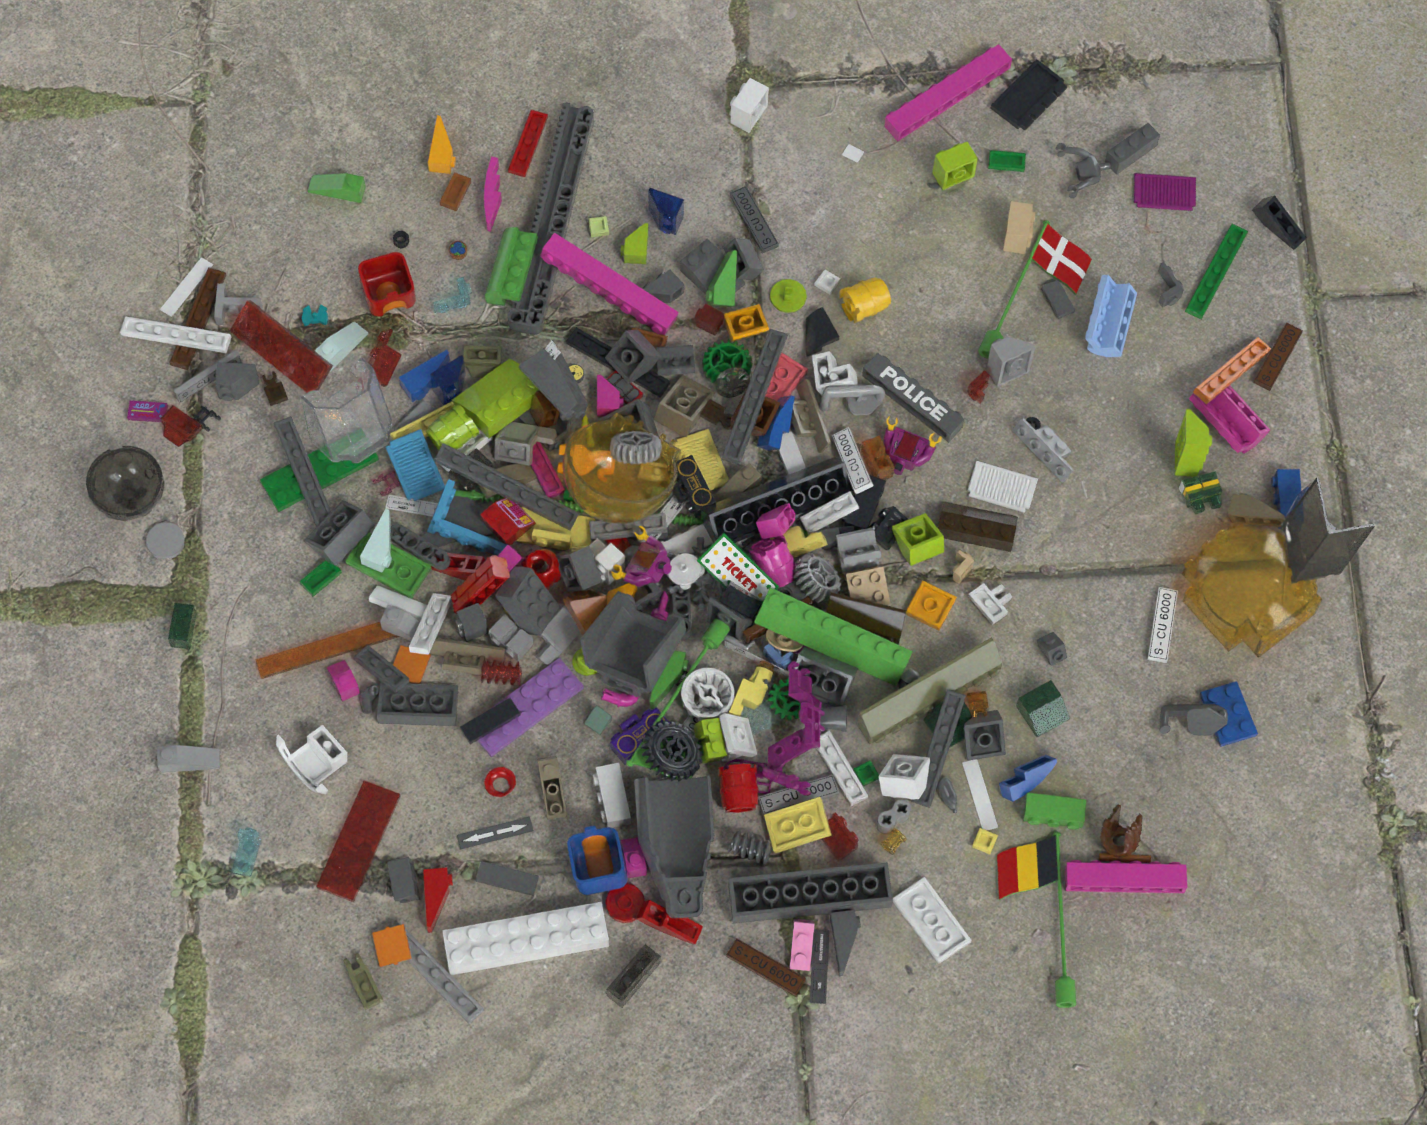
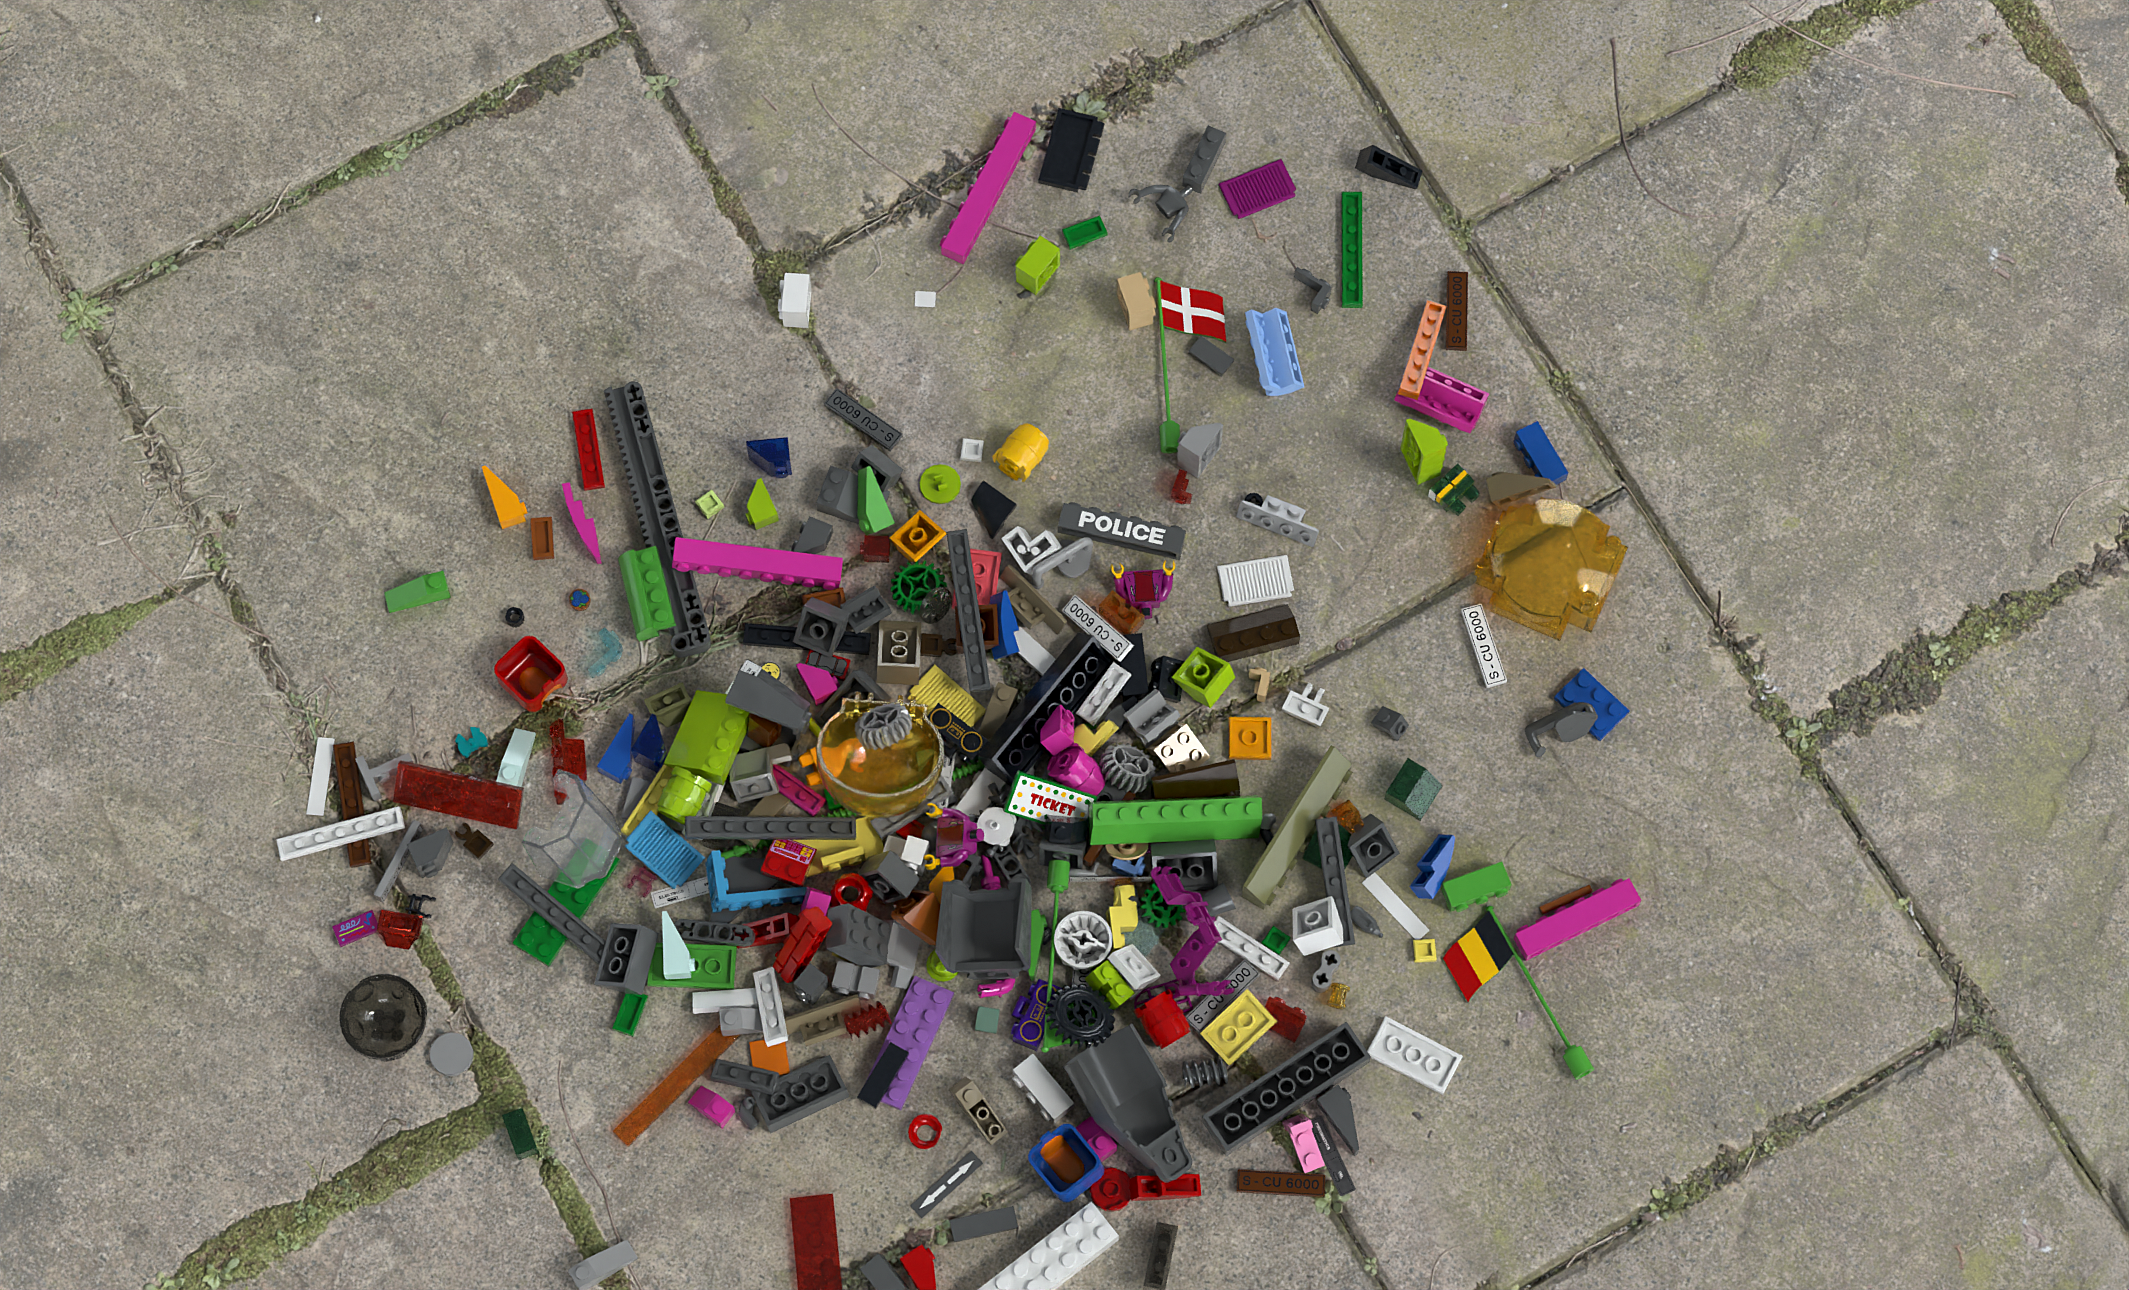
camera: 25 degrees left, 5 degrees up
(315, 759) = (730, 1202): white piece -> none
(1112, 828) = (1545, 874): reddish brown piece -> none
(1314, 544) = (1591, 494): clear smoke windscreen -> none

